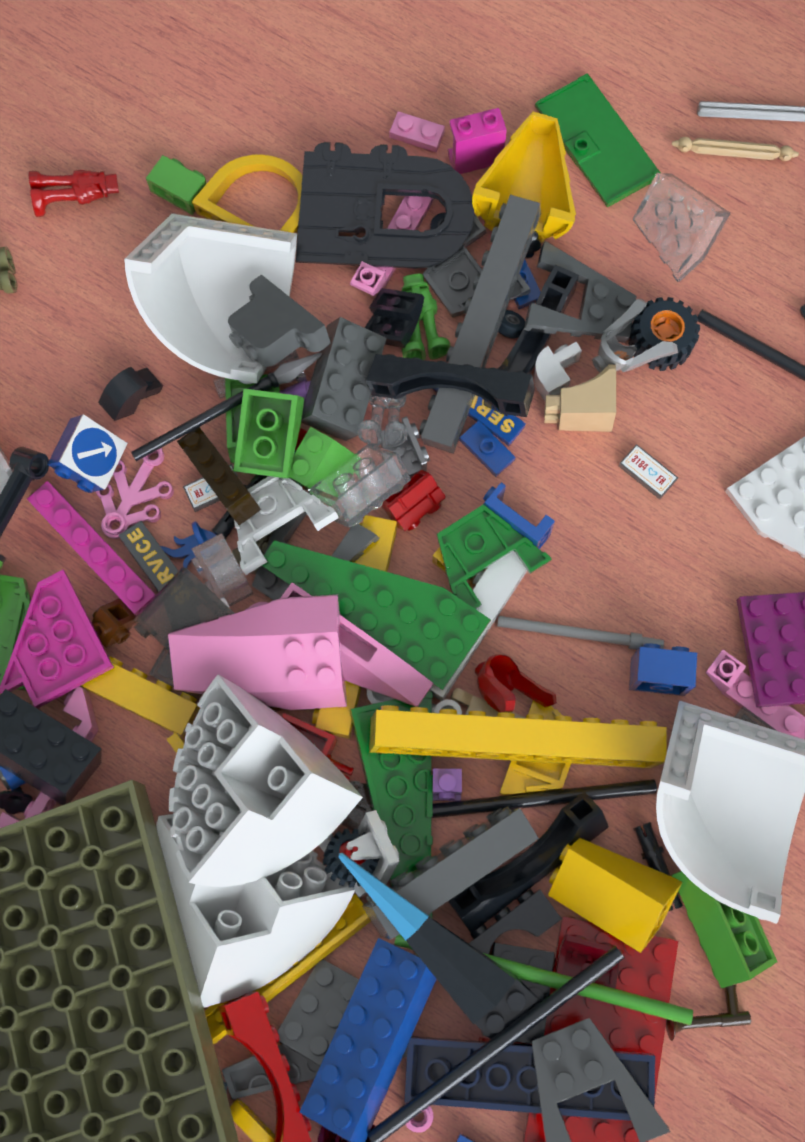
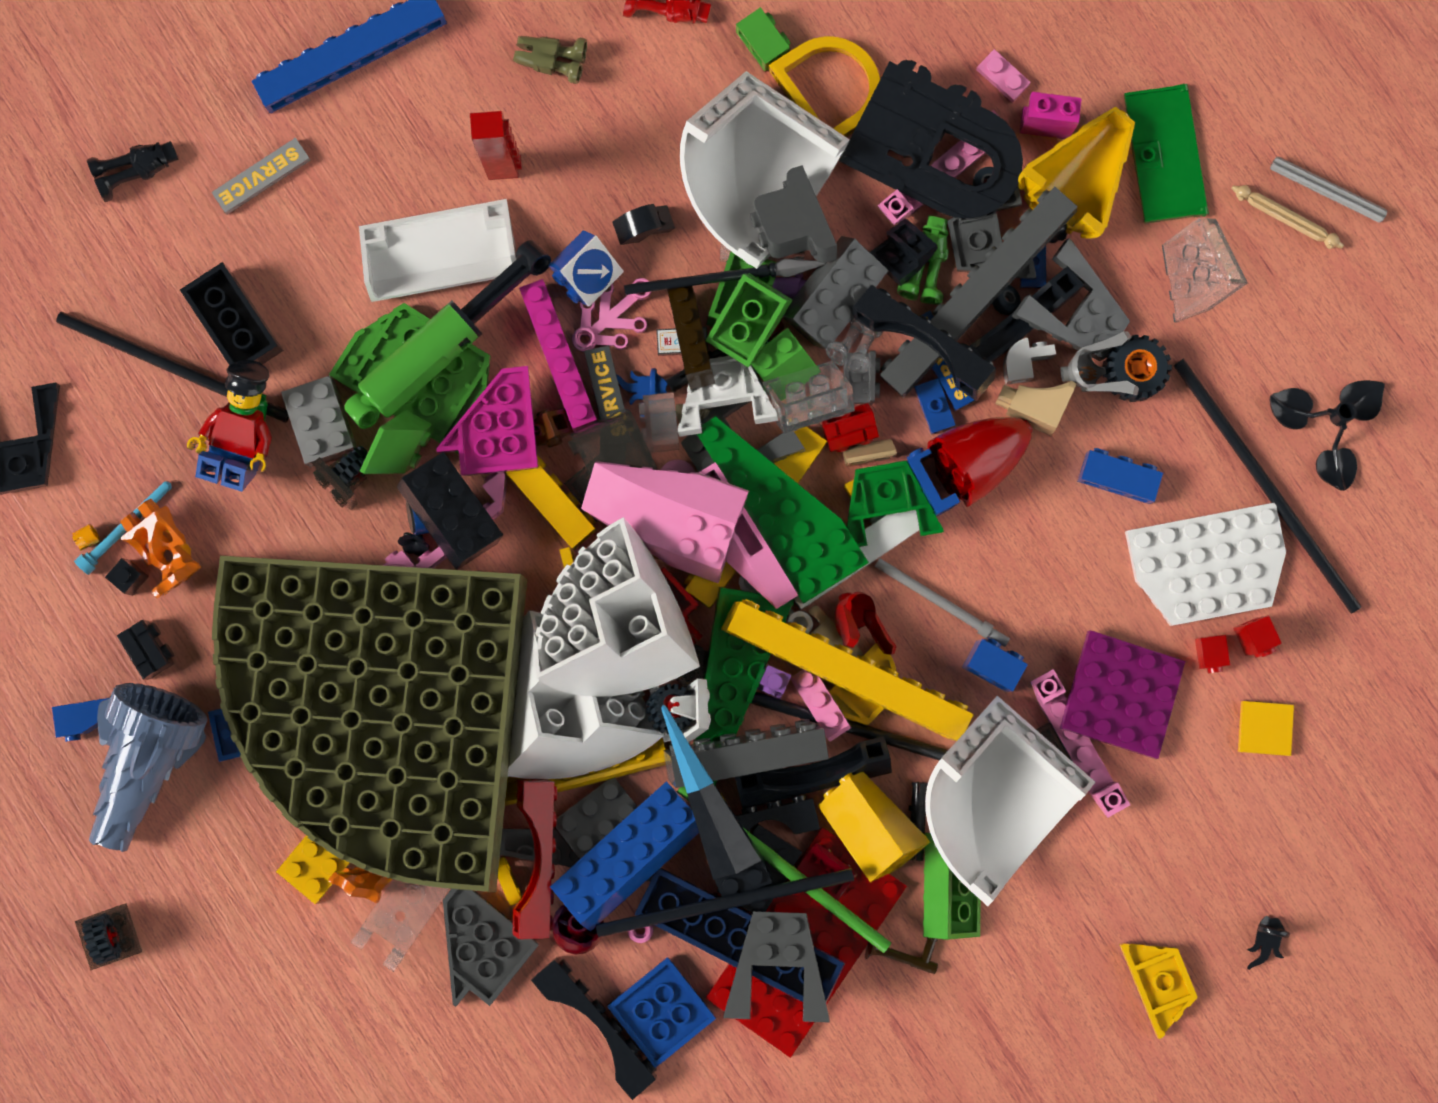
camera: 20 degrees right, 10 degrees up
(443, 518) = (870, 452): none -> tan slope
(505, 786) = (821, 704): none -> bright pink plate
(551, 473) = (979, 455): none -> red cylinder
(648, 471) = (1065, 486): tile -> none
(696, 439) = (1120, 476): none -> blue brick

